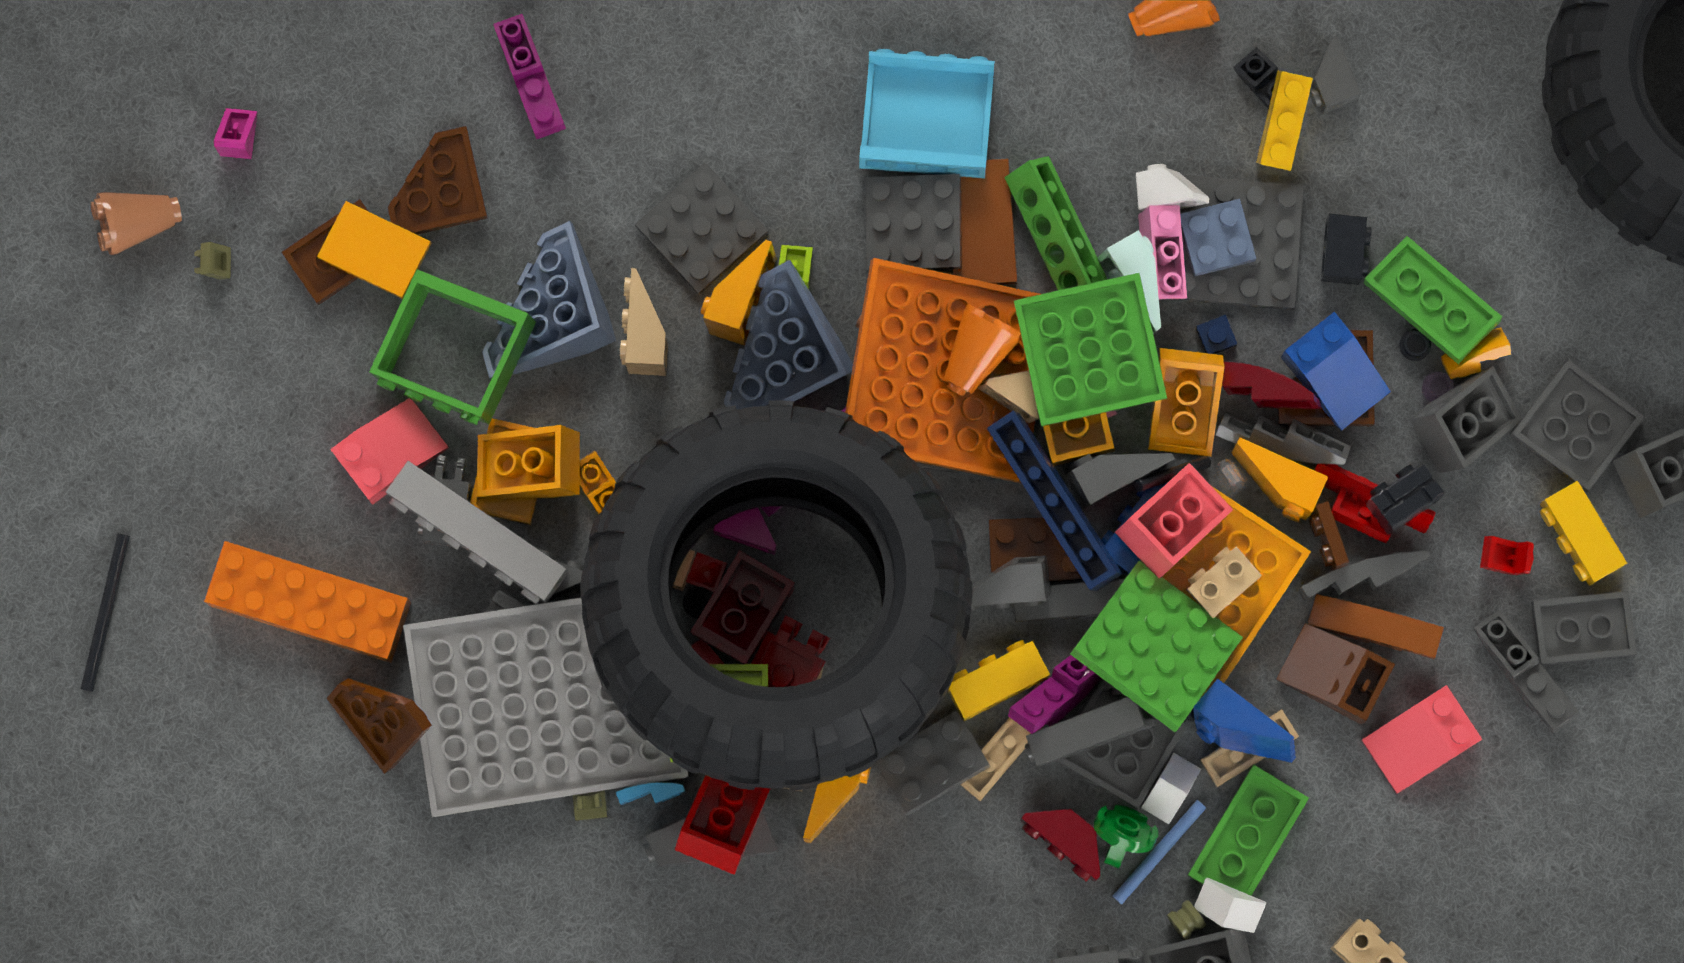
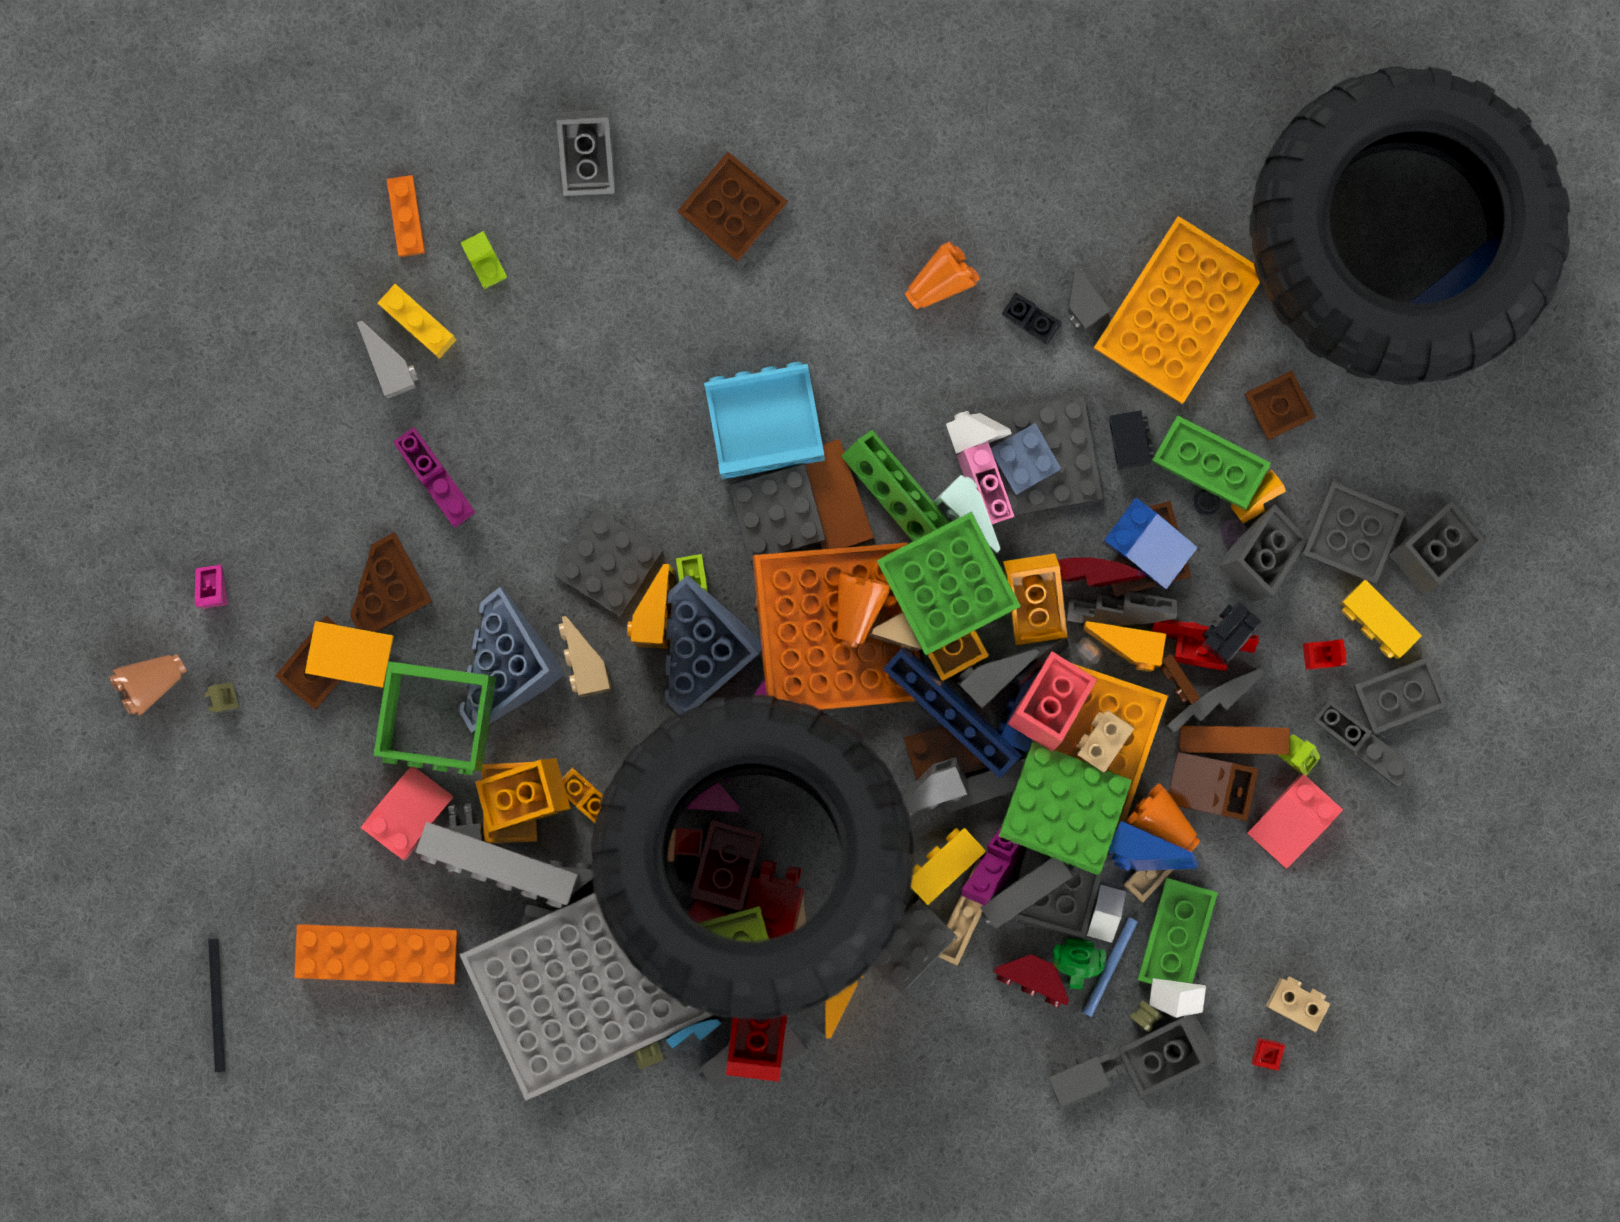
camera: 10 degrees left, 5 degrees up
(380, 720) = (462, 1034): reddish brown plate -> none
(1216, 335) = (1045, 537): dark blue plate -> none
(1269, 691) = (1163, 819): none -> orange cone
(1284, 120) = (1054, 348): yellow brick -> none
(1440, 118) = (1179, 310): none -> light orange plate
(1450, 664) = (1301, 755): none -> lime slope
(1528, 257) = (1279, 405): none -> reddish brown plate

